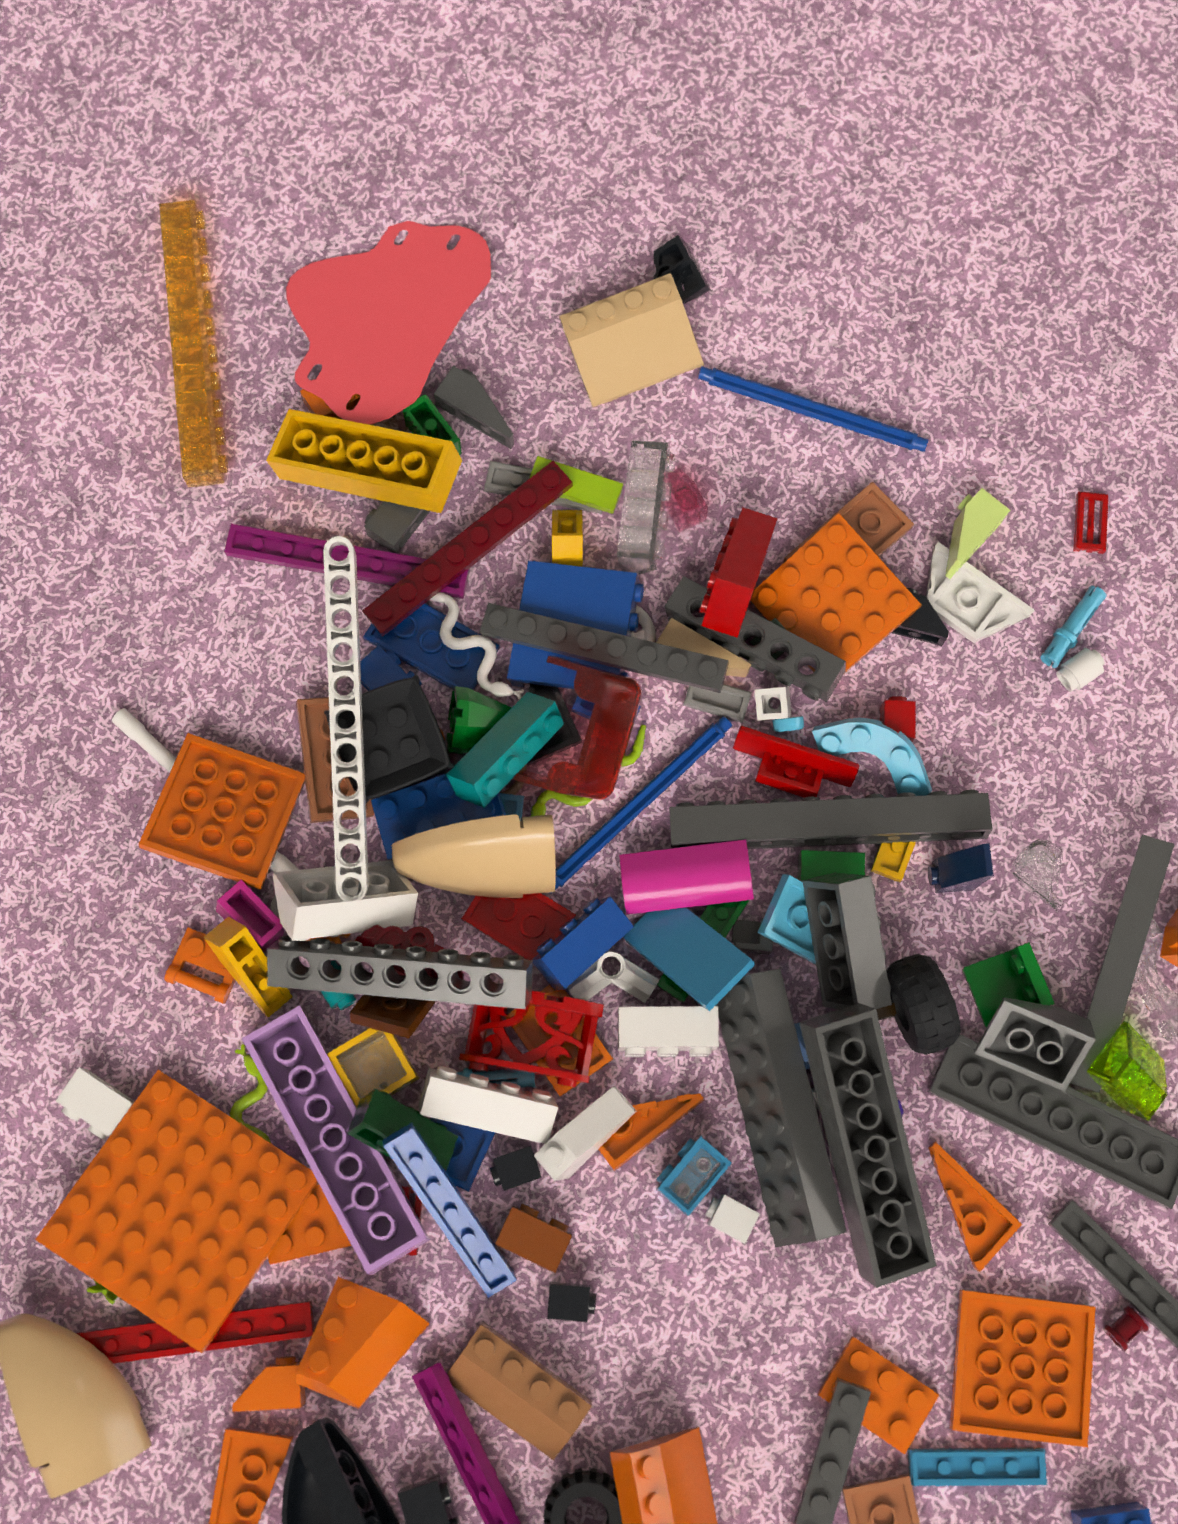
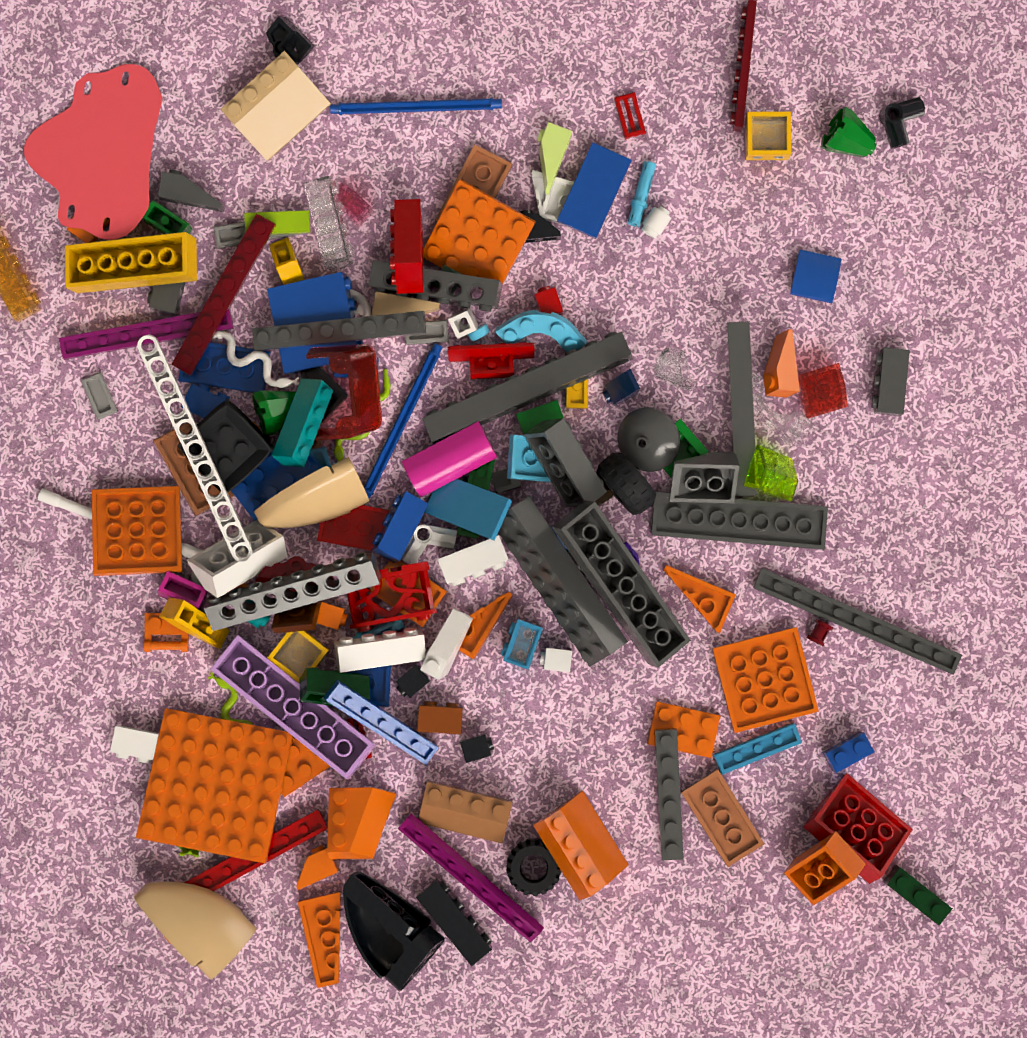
camera: 20 degrees left, 10 degrees up
(251, 618) = (99, 395): none -> light grey tile
(440, 1031) = (332, 616): none -> orange brick
(992, 950) = (657, 431): none -> dark grey dish
(1012, 597) = (594, 190): none -> blue tile

